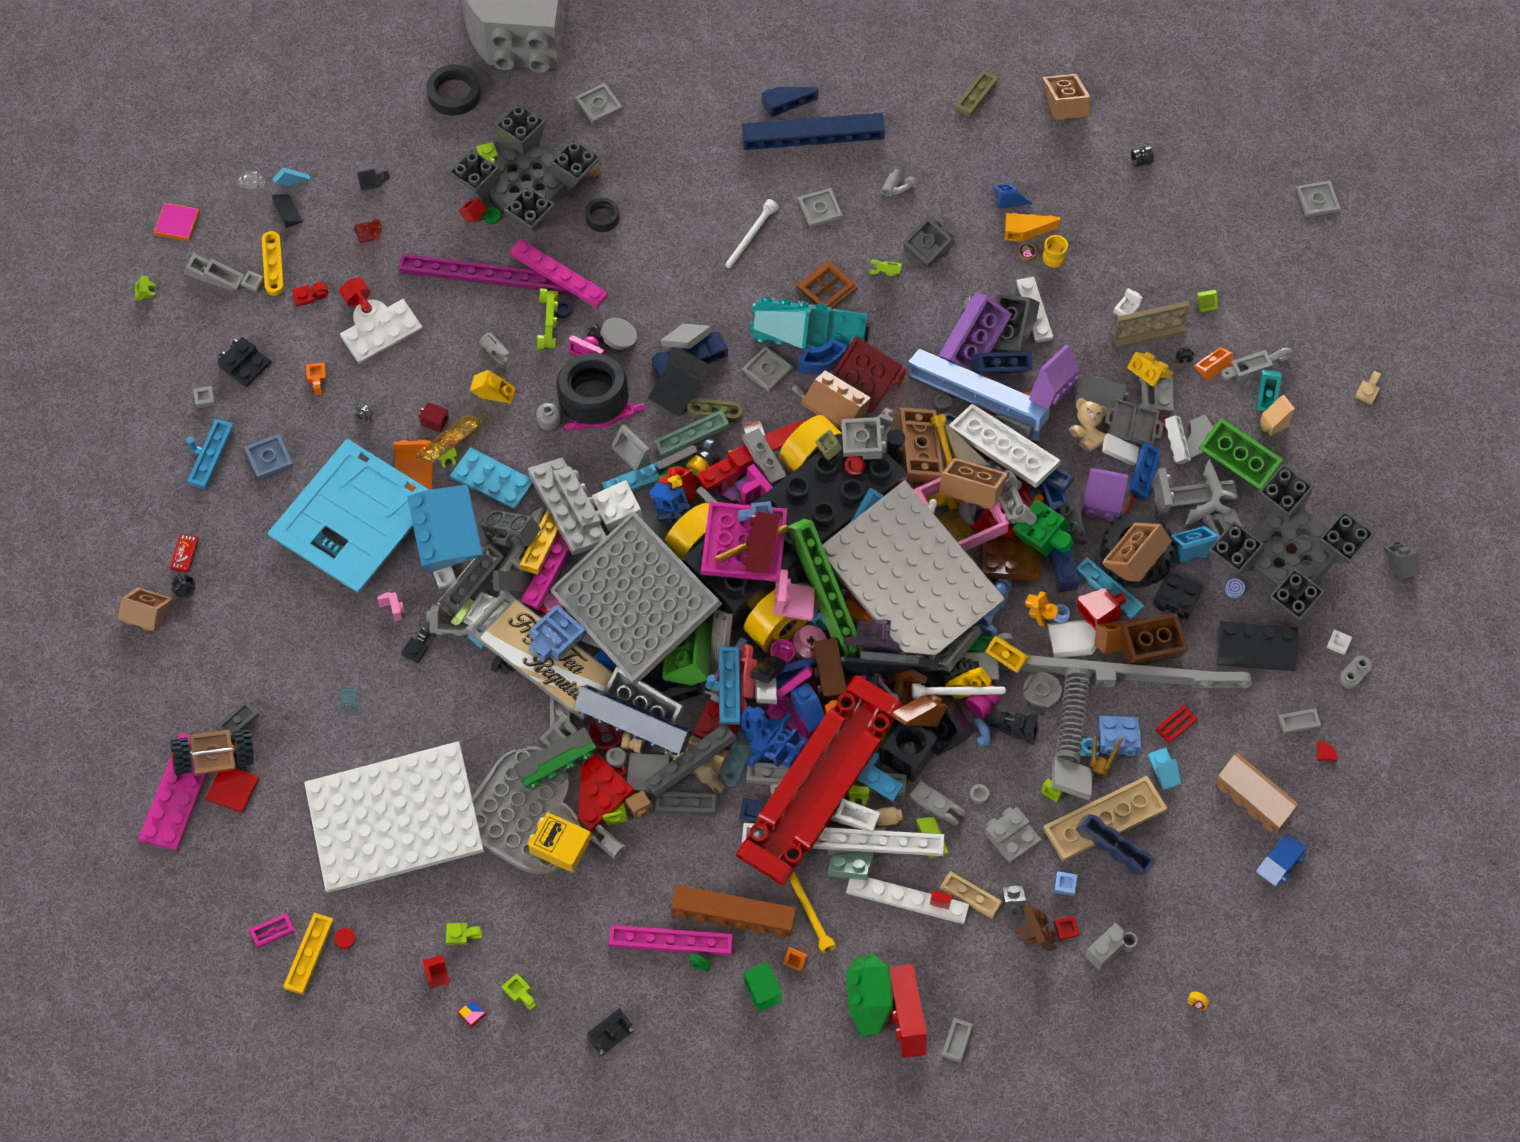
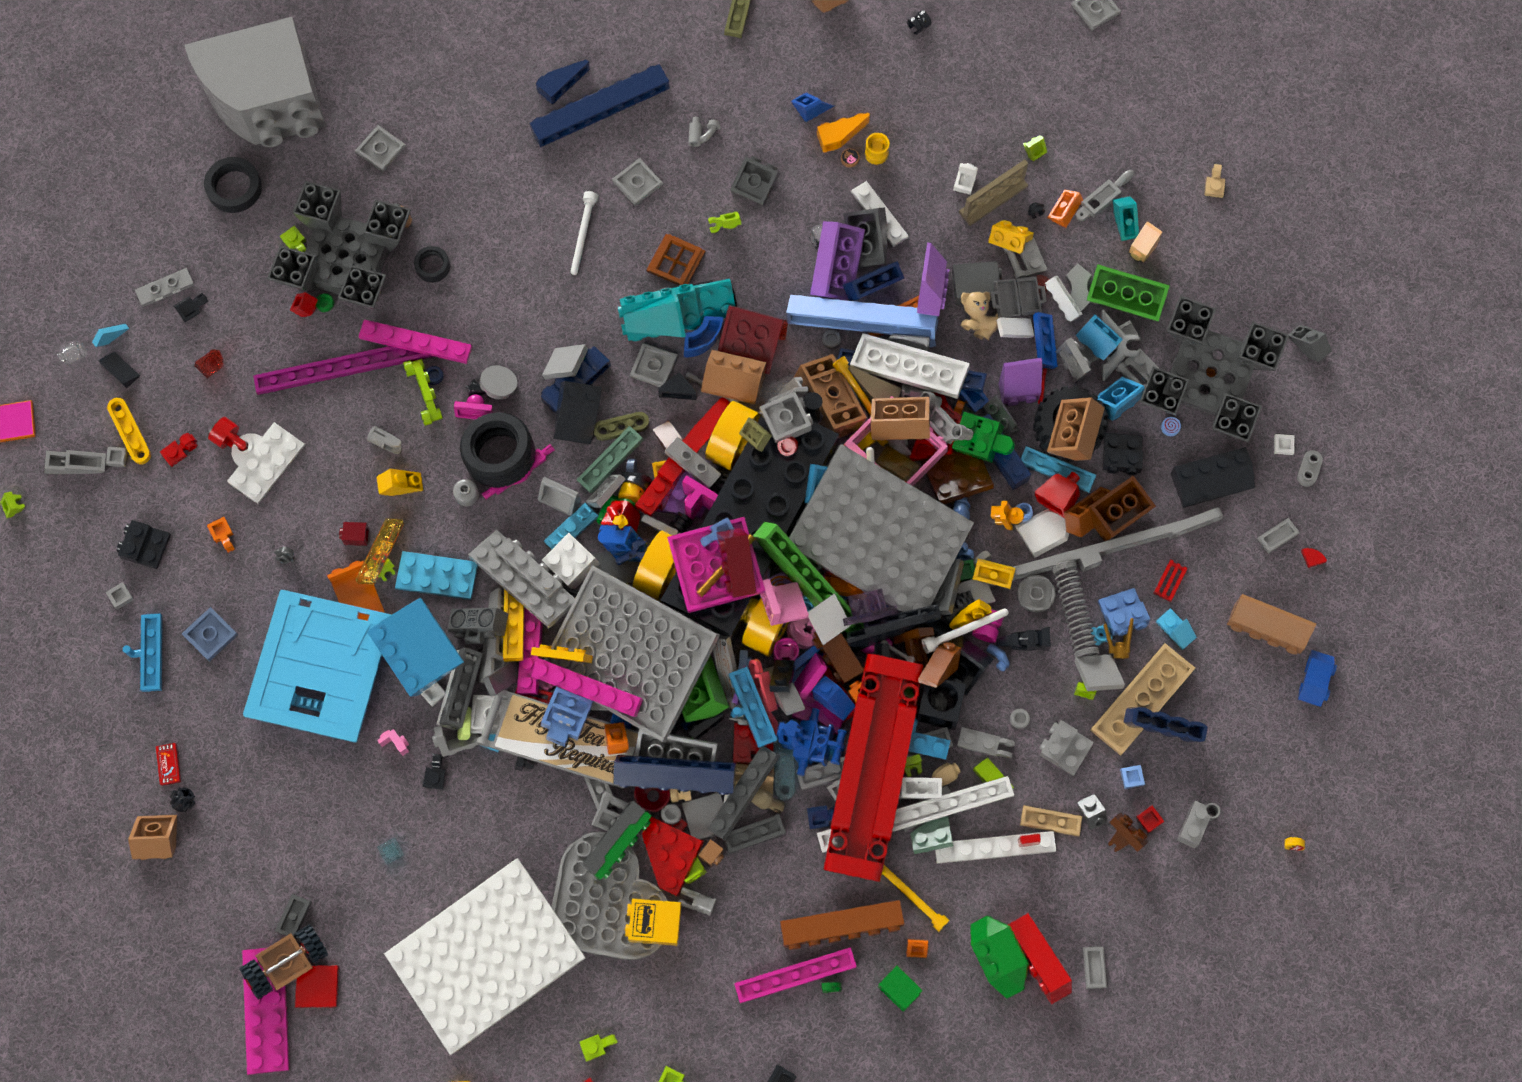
camera: 20 degrees left, 10 degrees up
(356, 155) = (164, 287): none -> light grey plate
(574, 579) = (562, 654): none -> yellow plate
(584, 614) = (587, 687): none -> dark pink plate
(593, 672) = (616, 738): none -> orange slope
(779, 394) = (677, 388): none -> black slope
(830, 632) = (828, 619): none -> white sticker
(1195, 482) = (1099, 337): none -> dark azure brick

